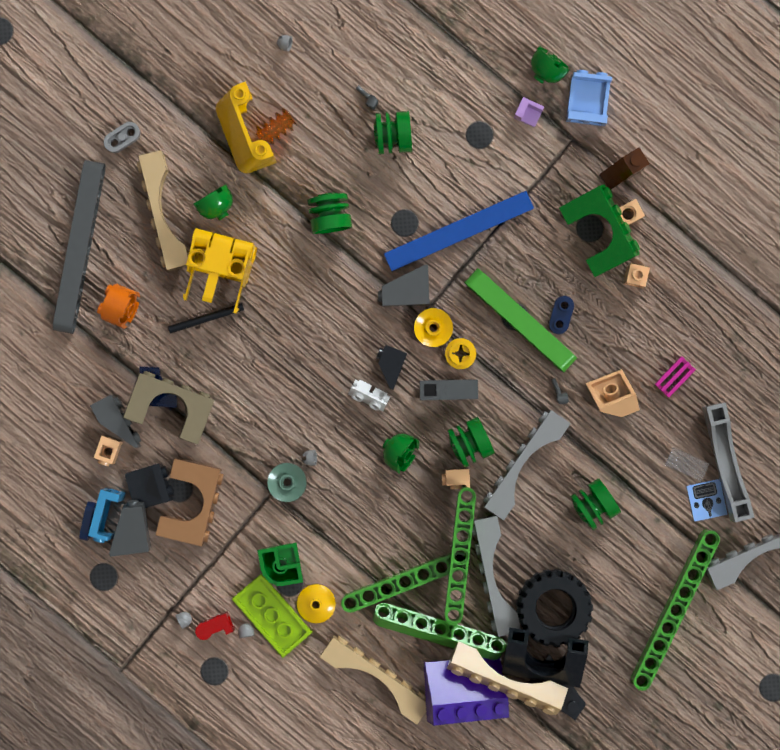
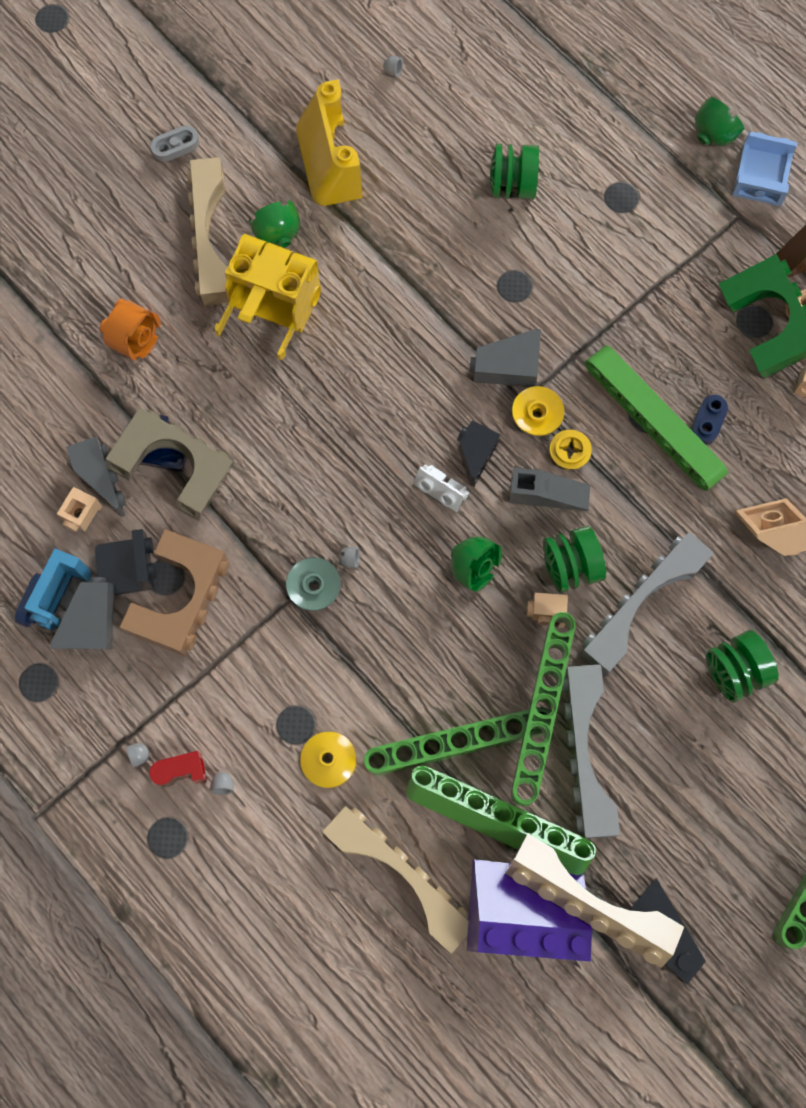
camera: 10 degrees right, 15 degrees down
(79, 246) = (93, 261): dark grey beam -> none
(204, 318) = (239, 366): black bar -> none
(272, 615) = (263, 767): lime tile -> none
(275, 127) = (374, 148): clear orange piece -> none
(281, 564) = (287, 691): green brick -> none
(329, 213) = (421, 253): green wheel -> none
(372, 101) = (490, 139): dark grey hand -> none
(458, 231) = (583, 302): blue tile -> none
(528, 112) = (687, 174): lavender panel -> none
(535, 588) = (703, 787): black tyre -> none
(562, 398) = (701, 524): dark grey hand -> none
(563, 671) = (682, 901): black arch -> none

